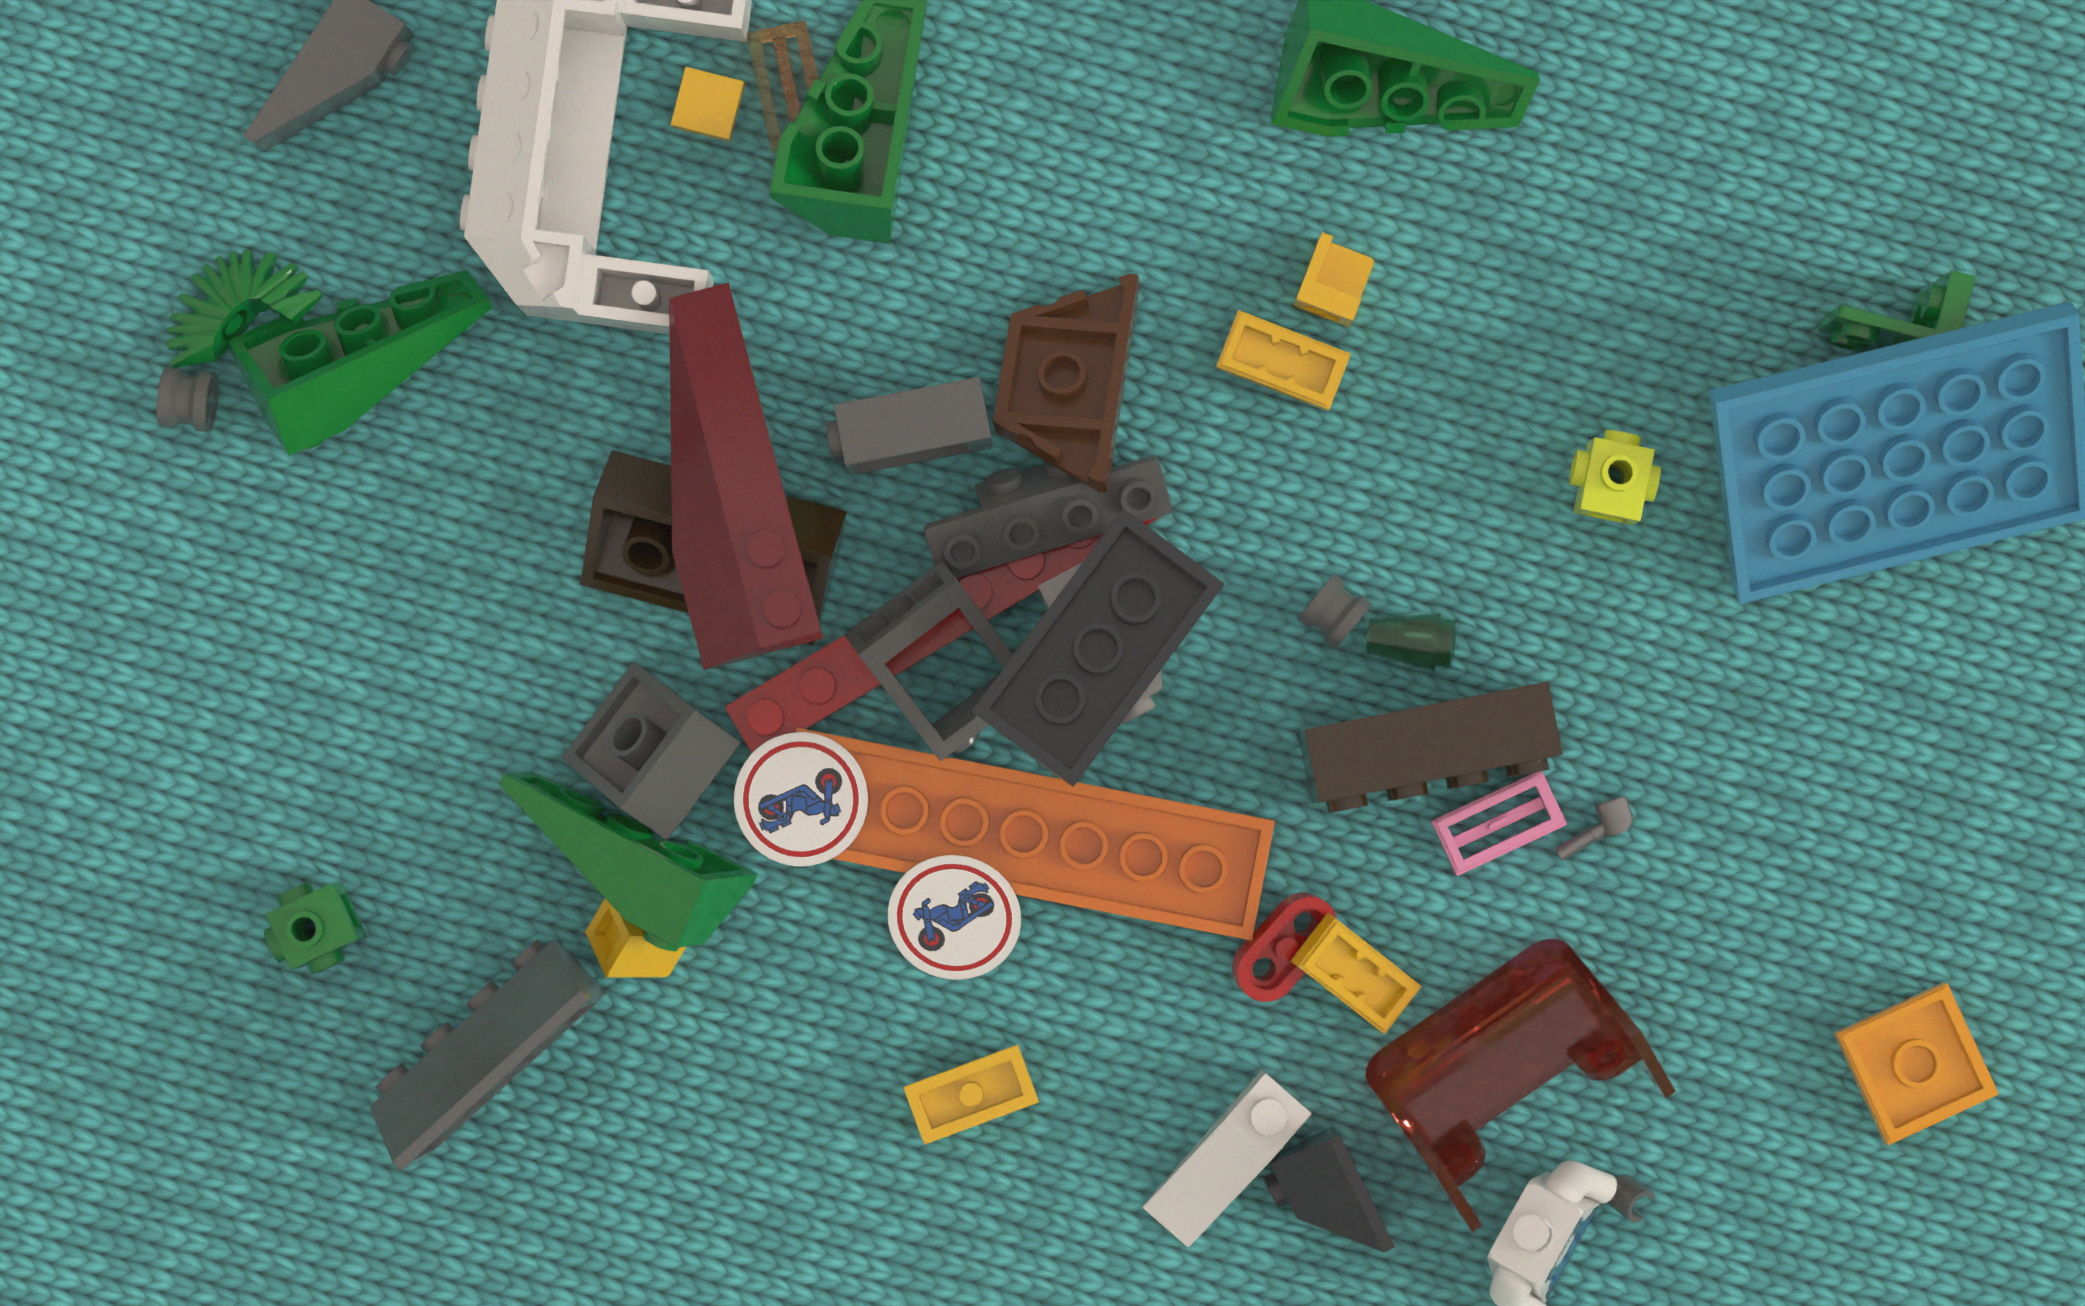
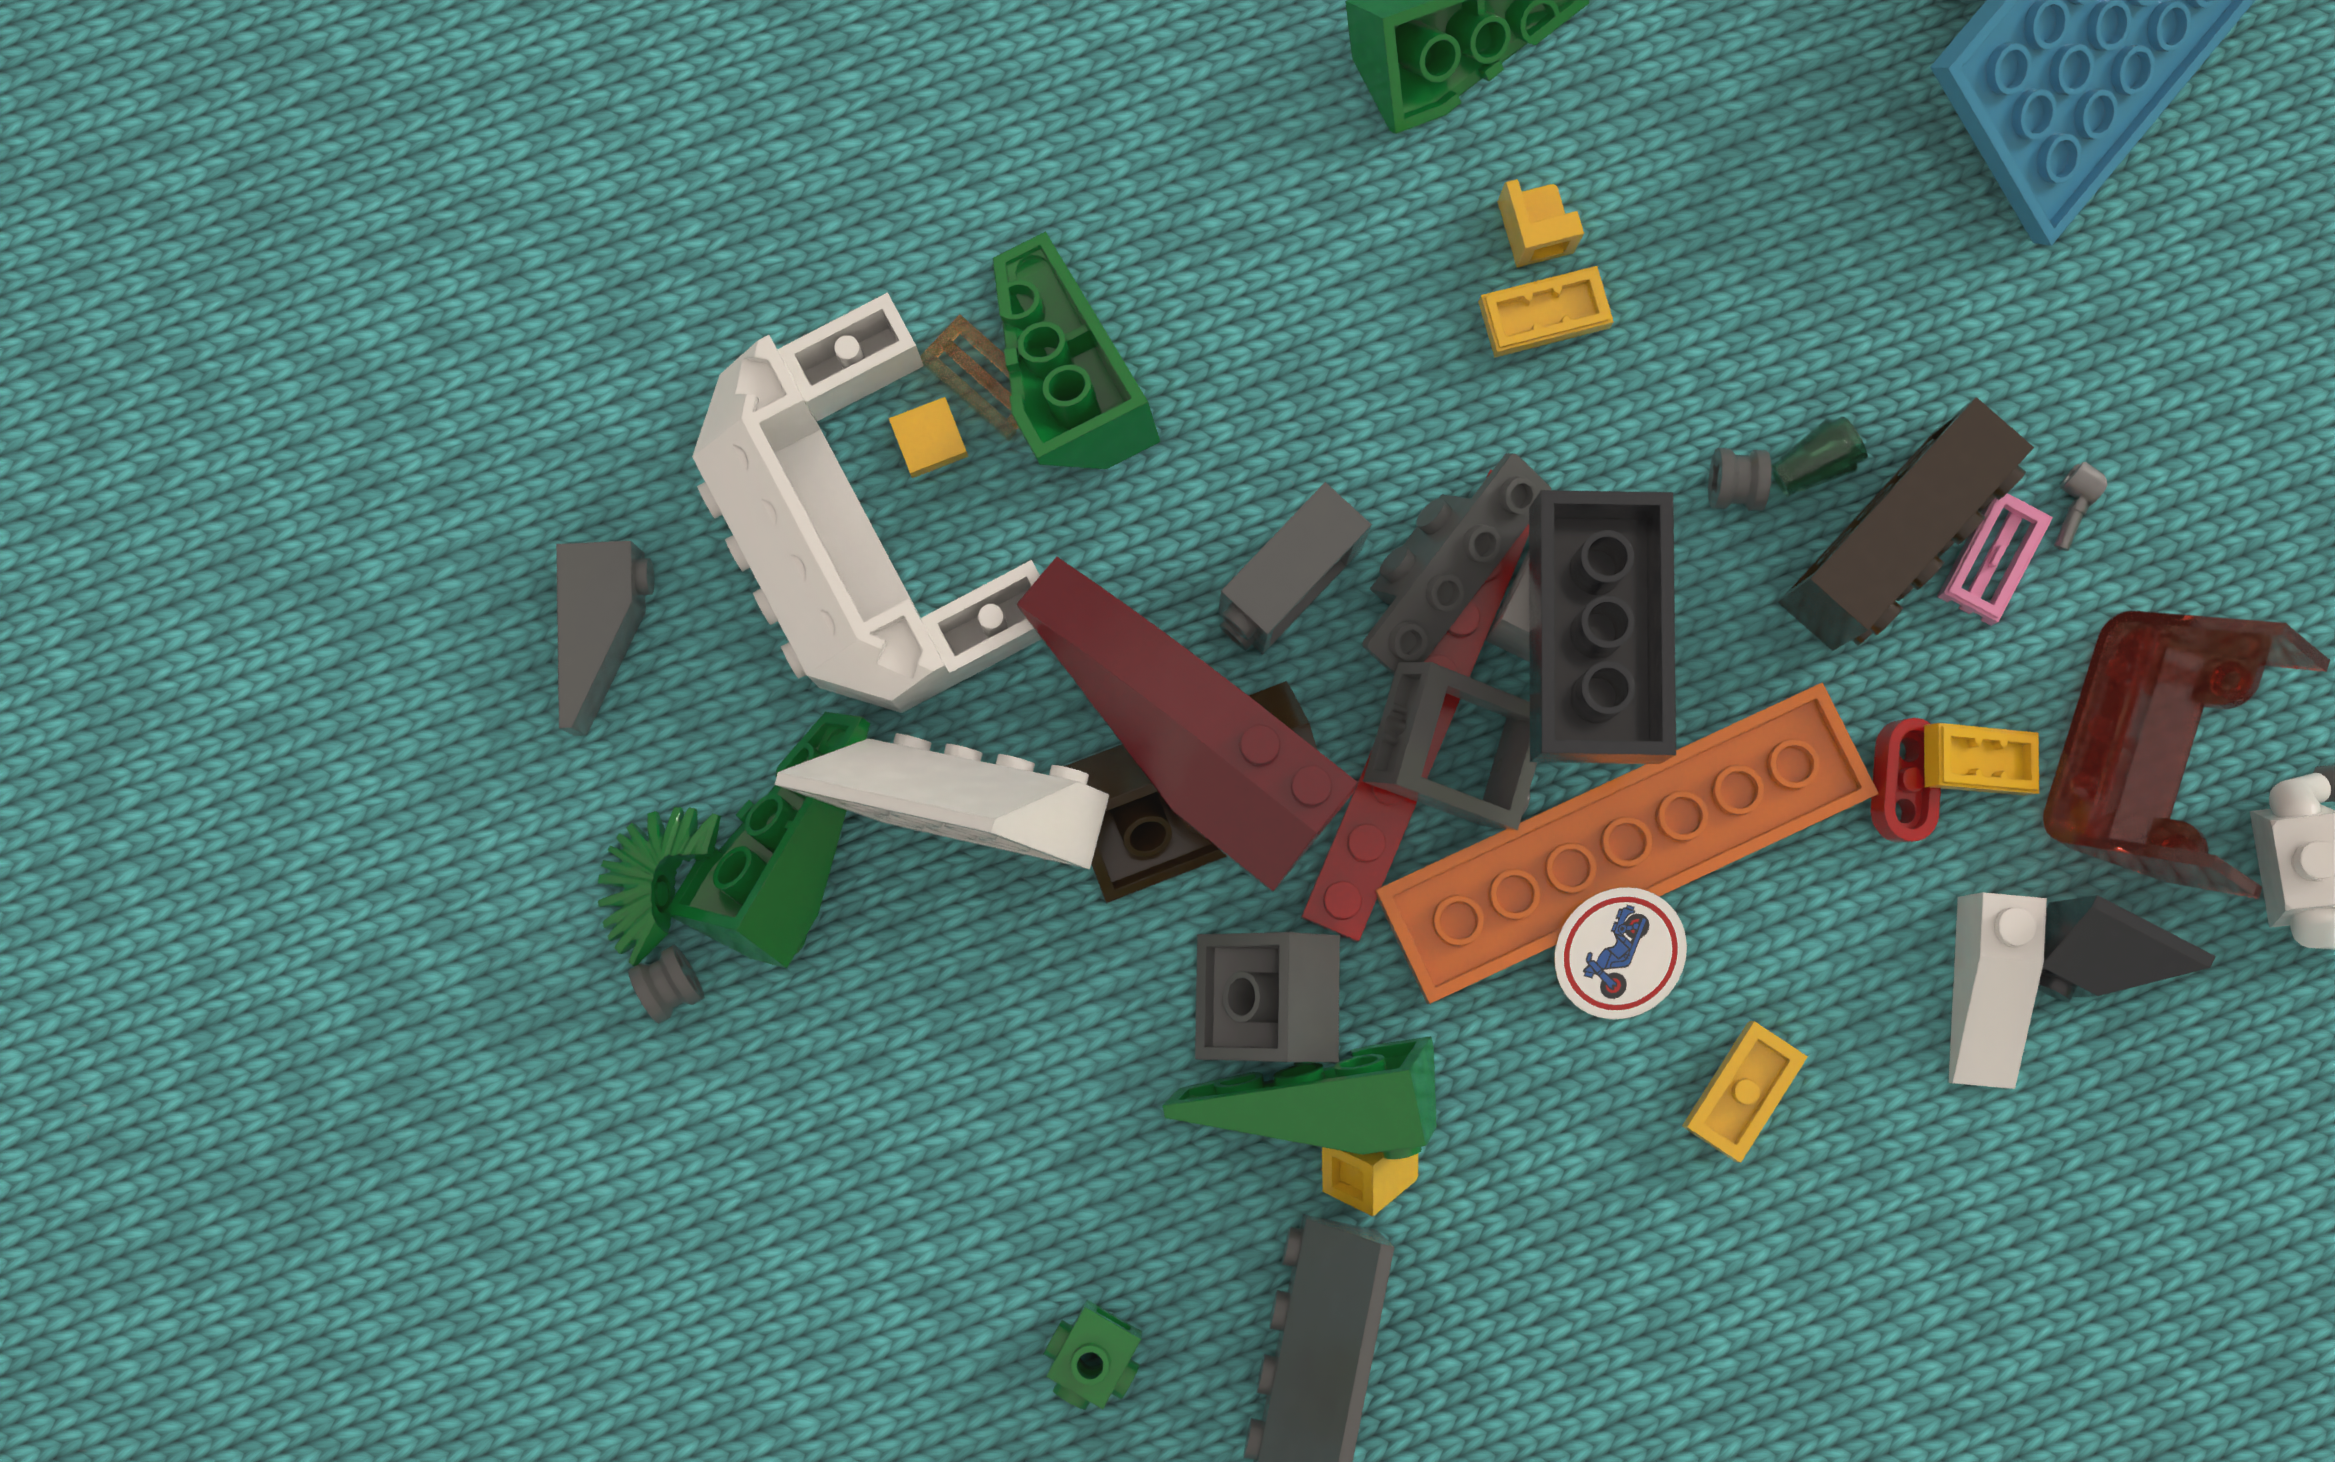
camera: 35 degrees left, 5 degrees down
(512, 417) = (959, 796): none -> white slope
(800, 799) = (1423, 946): white sticker -> none
(1068, 379) = (1389, 445): reddish brown wing -> none
(1598, 494) = (1882, 213): neon yellow brick -> none

